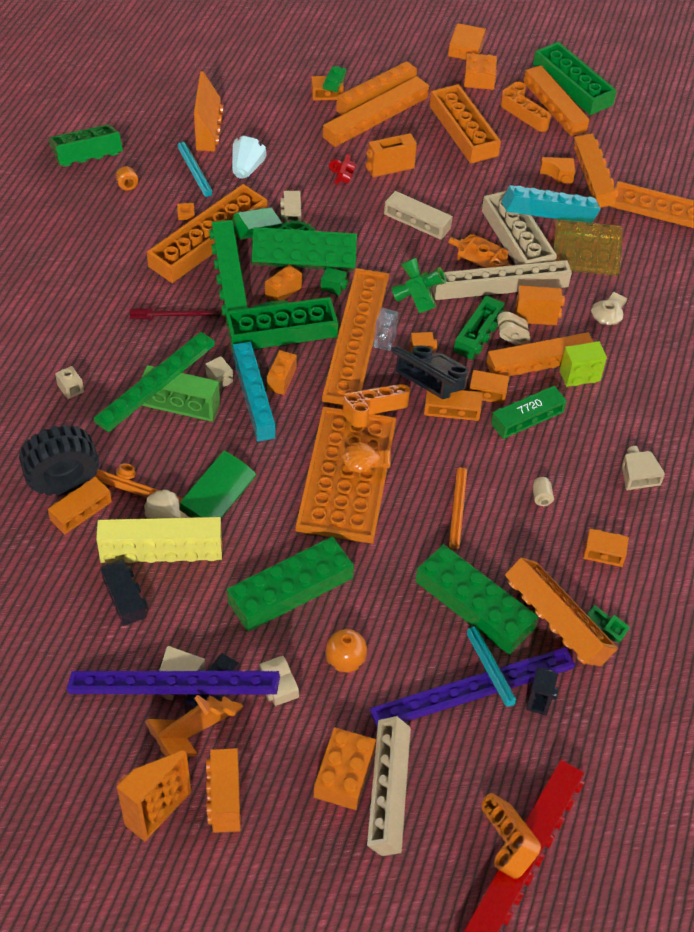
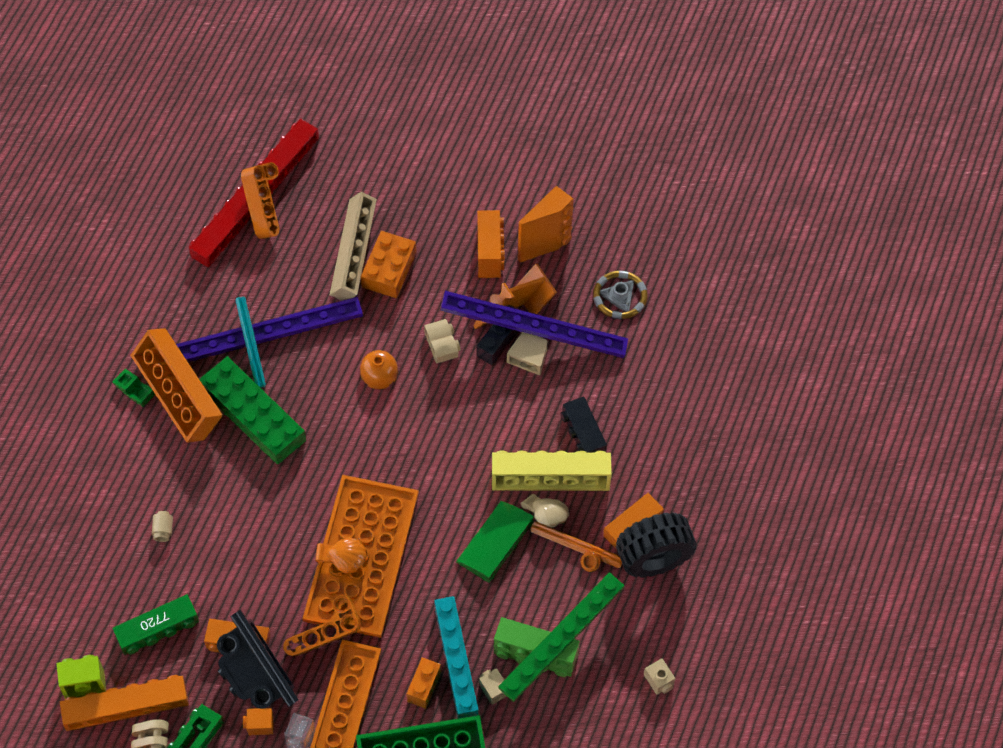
camera: 175 degrees left, 10 degrees up
(70, 749) = (620, 294): none -> light grey piece
(290, 583) = (426, 430): green brick -> none
(458, 505) = (252, 515): orange axle -> none
(491, 385) = (193, 660): orange brick -> none
(542, 691) = (209, 314): black brick -> none
(606, 547) = (113, 461): orange brick -> none
(641, 469) = (53, 549): tan torso -> none

